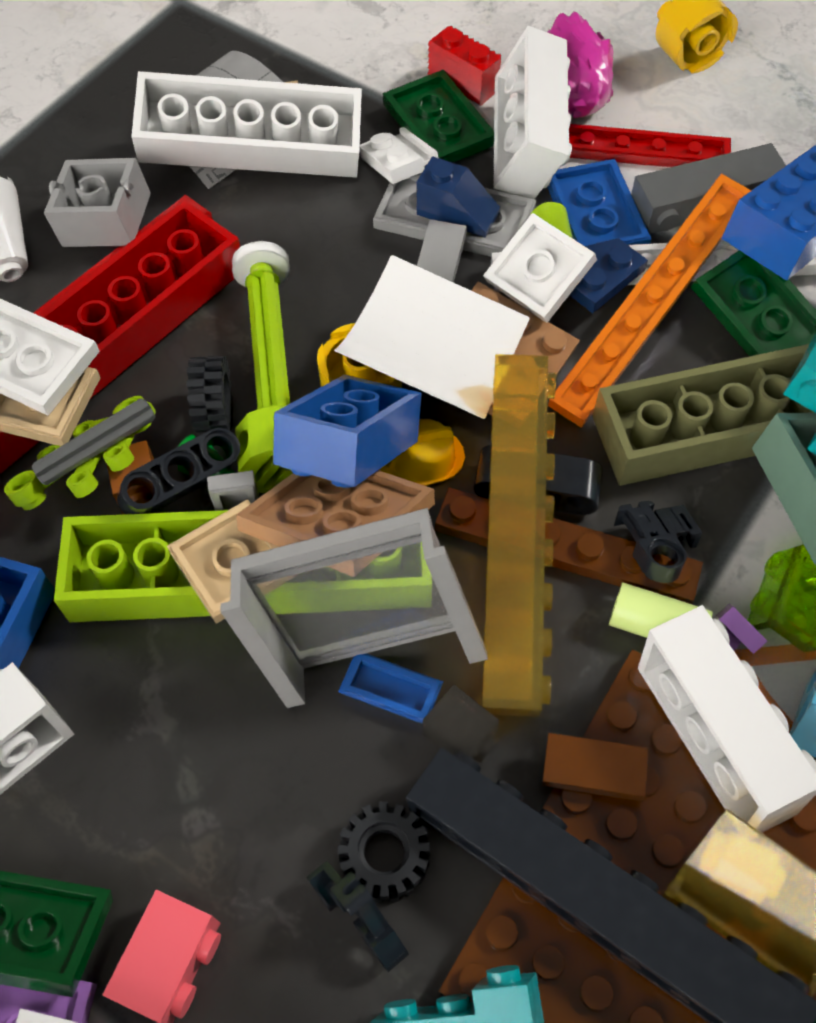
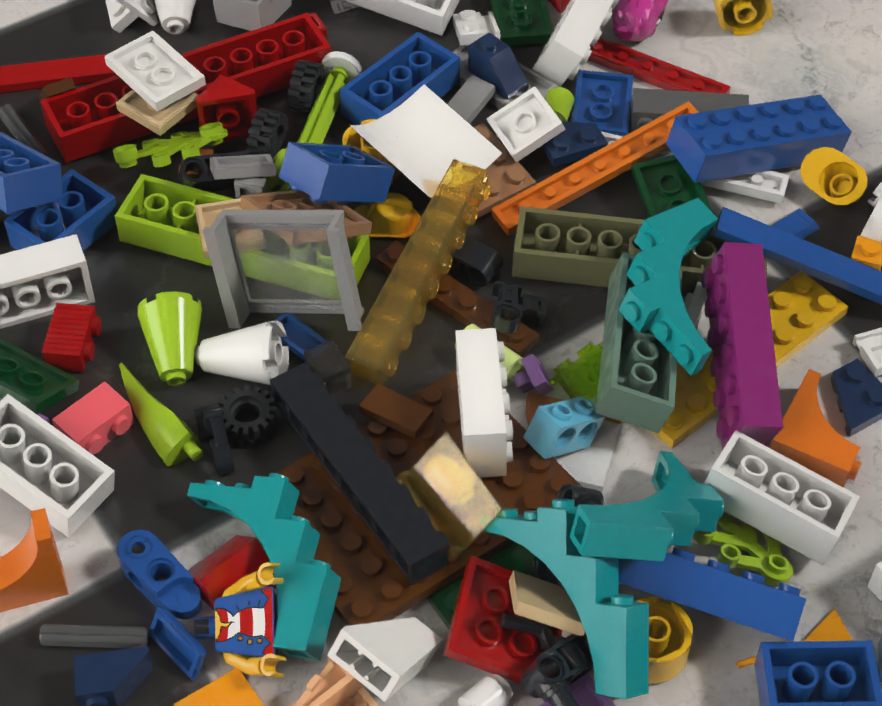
camera: 20 degrees right, 10 degrees down
(67, 819) = (71, 337): none -> red brick
(93, 441) = (179, 137): dark grey axle -> none
(141, 367) = (230, 104): none -> red slope
(210, 463) = (242, 166): none -> light grey tile
(220, 766) = (171, 334): none -> lime cone
(228, 304) = (305, 85): none -> black tyre
(272, 919) = (165, 431): none -> lime piece
(338, 753) = (246, 353): none -> white cone
(345, 259) = (398, 77): none -> blue brick

